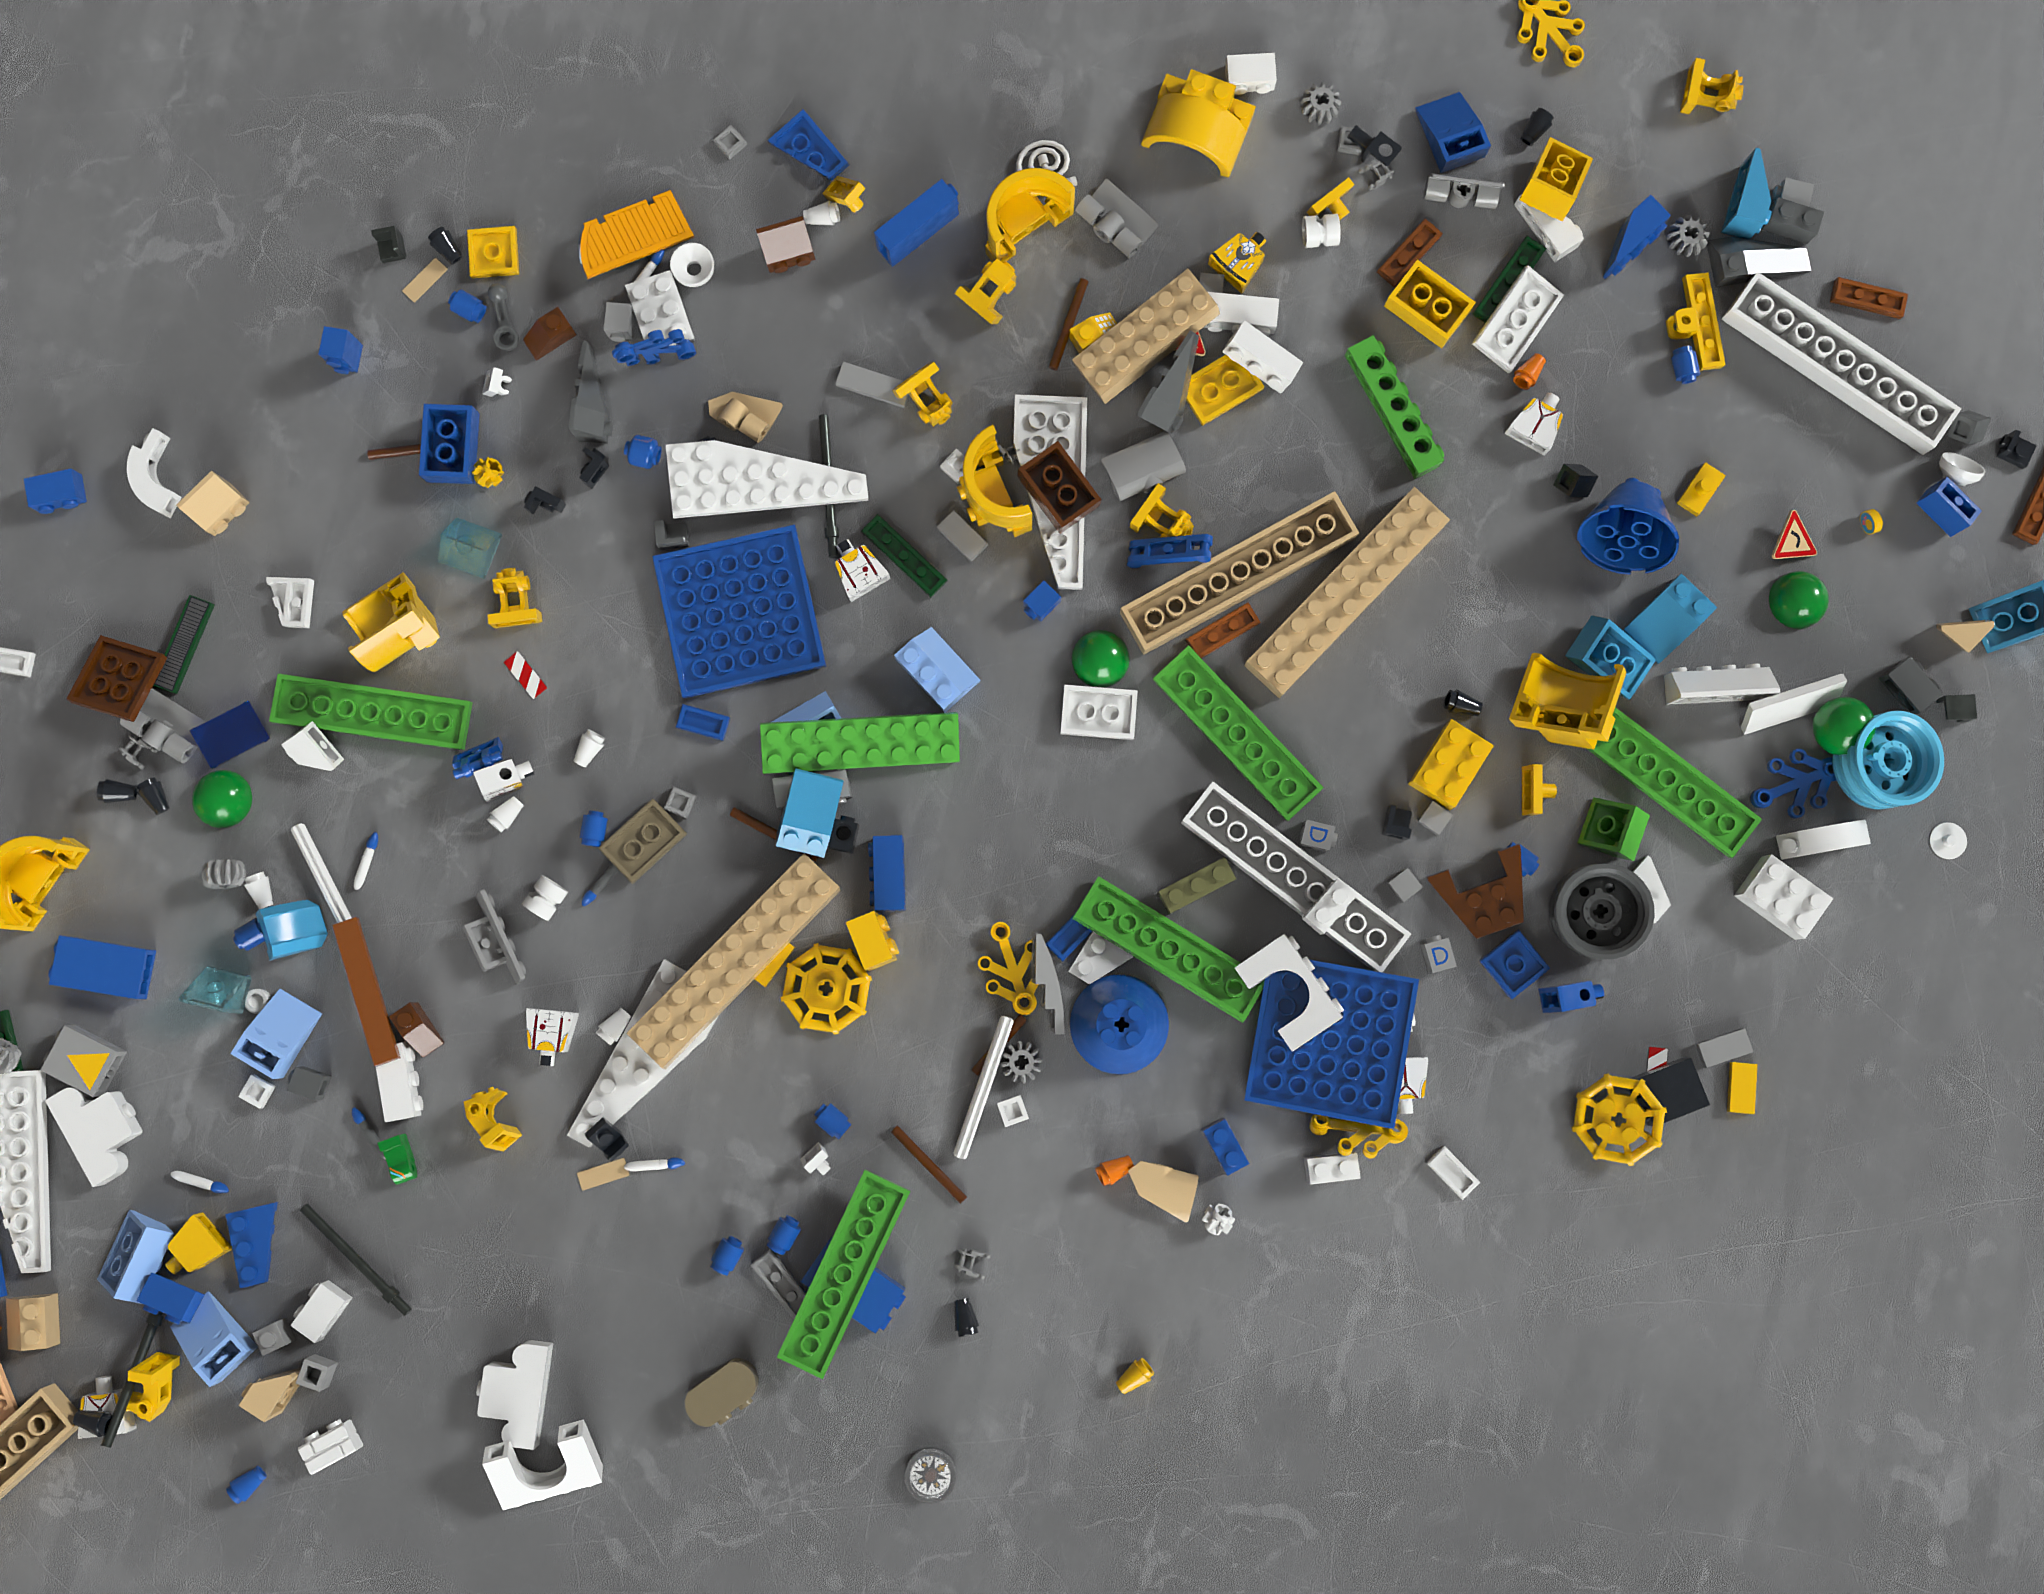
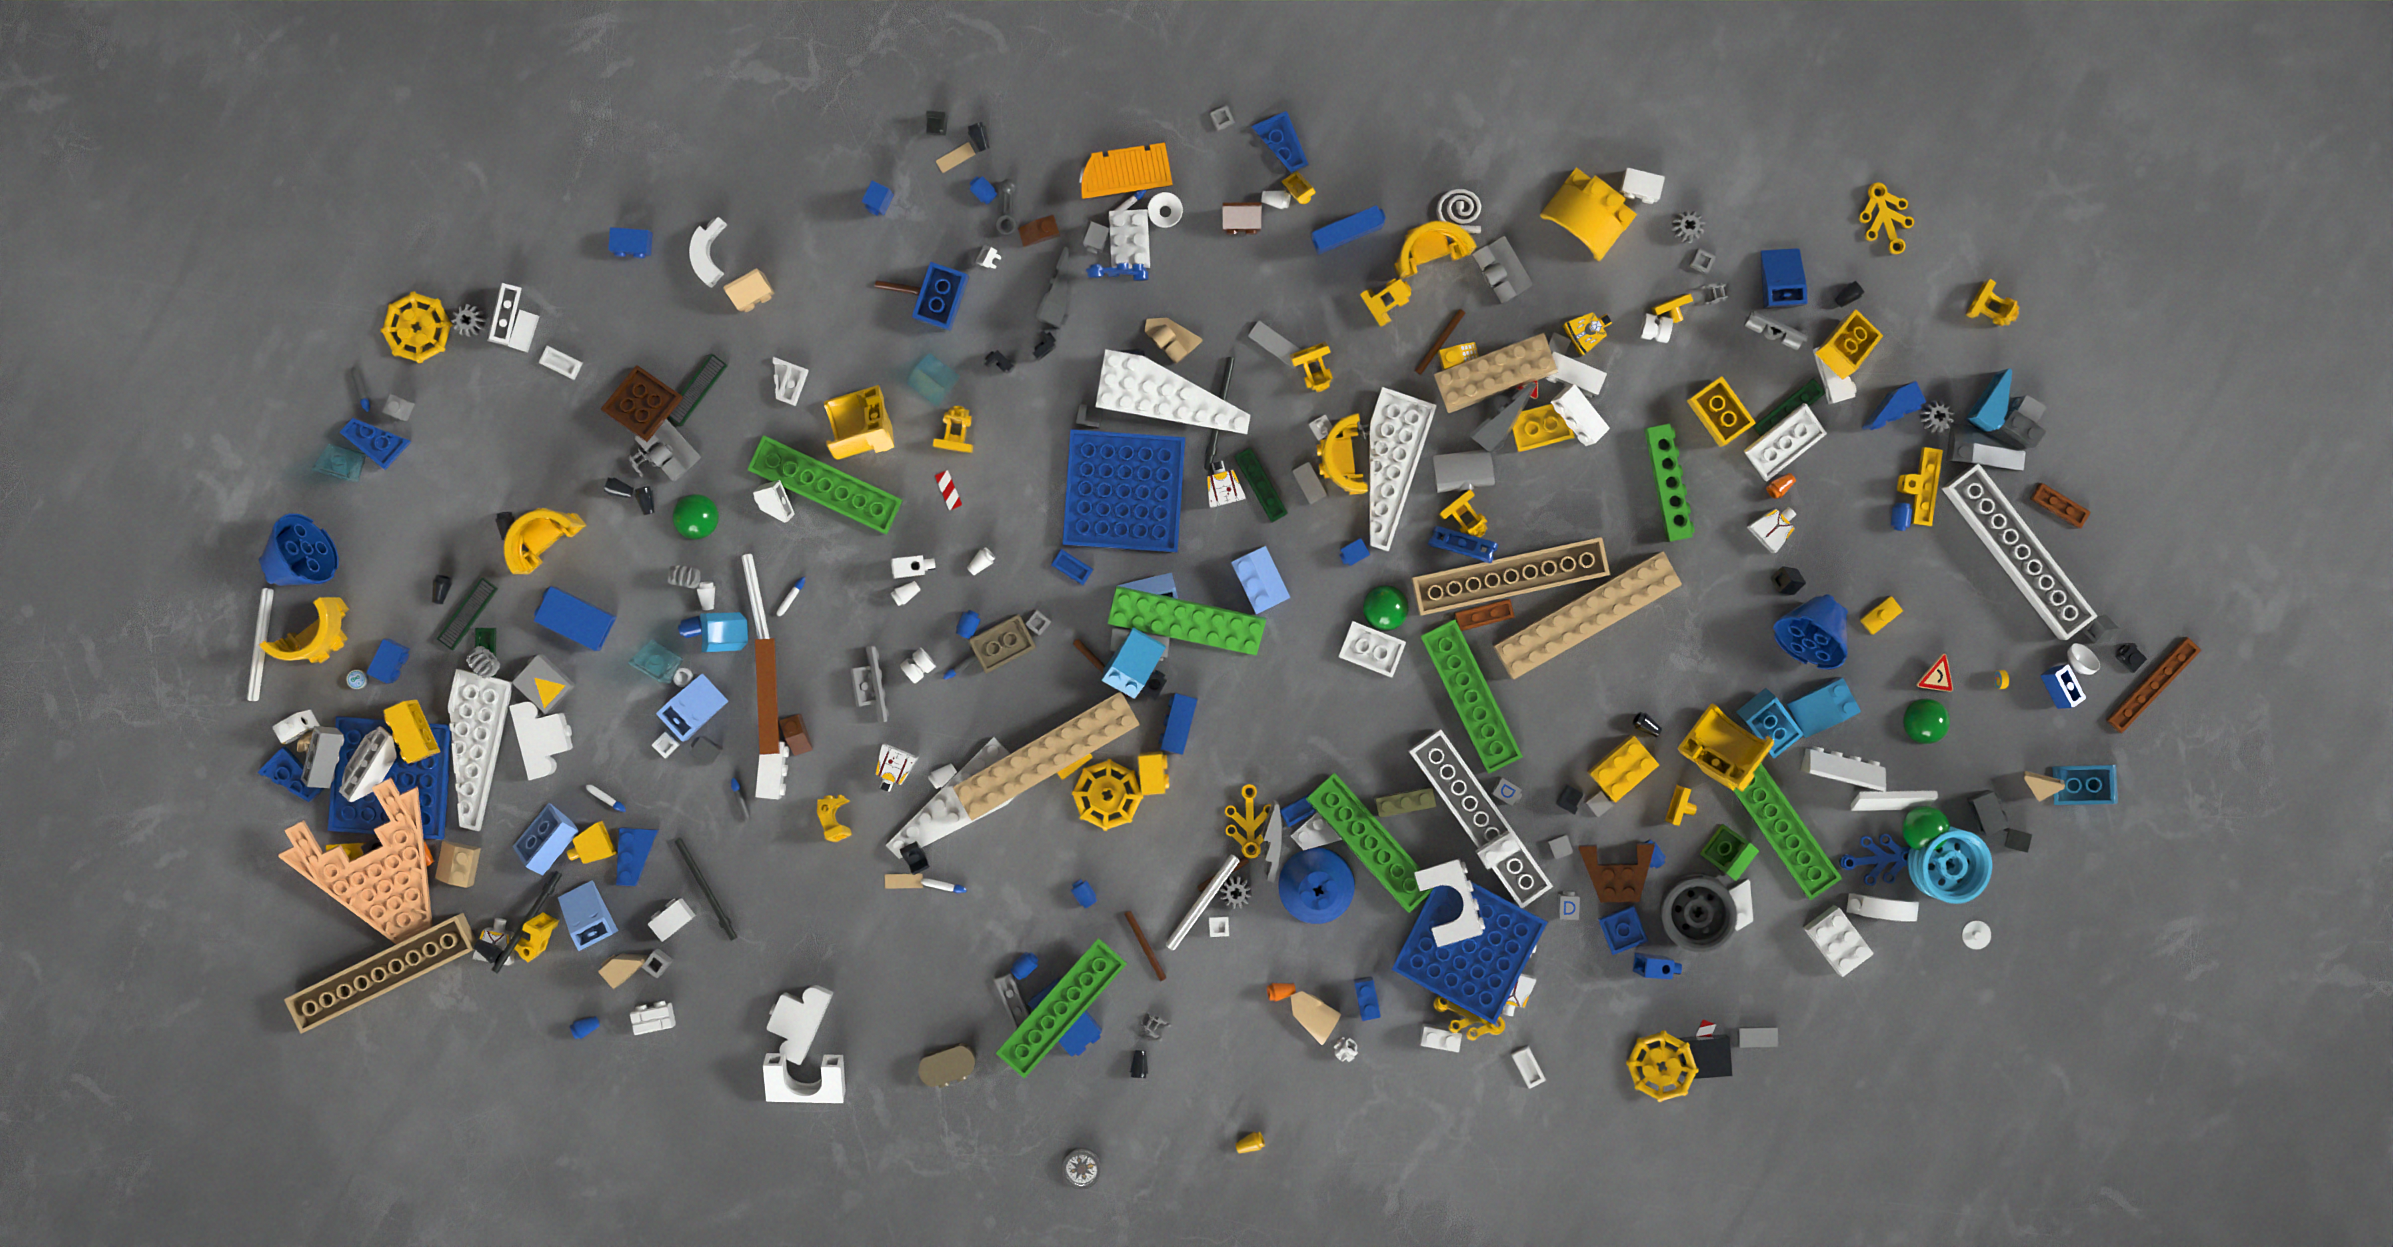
camera: 15 degrees right, 5 degrees up
(170, 1298) = (565, 878): blue brick -> none
(229, 734) = (714, 470): clear blue piece -> none
(274, 1336) = (632, 927): light grey brick -> none
(399, 1158) = (757, 825): green leg -> none
(477, 758) = (896, 545): blue plate -> none
(488, 472) = (963, 326): yellow gear -> none
(493, 252) = (1014, 151): yellow tile -> none
(643, 452) = (1085, 345): blue head -> none
(727, 1255) = (978, 968): blue brick -> none
(815, 1159) = (1063, 917): white tile -> none
(1058, 487) = (1394, 472): reddish brown brick -> none
(1371, 145) = (1717, 273): black bracket -> none
(1410, 251) = (1719, 364): dark orange tile -> none
(1742, 1088) = (1761, 1069): yellow tile -> none

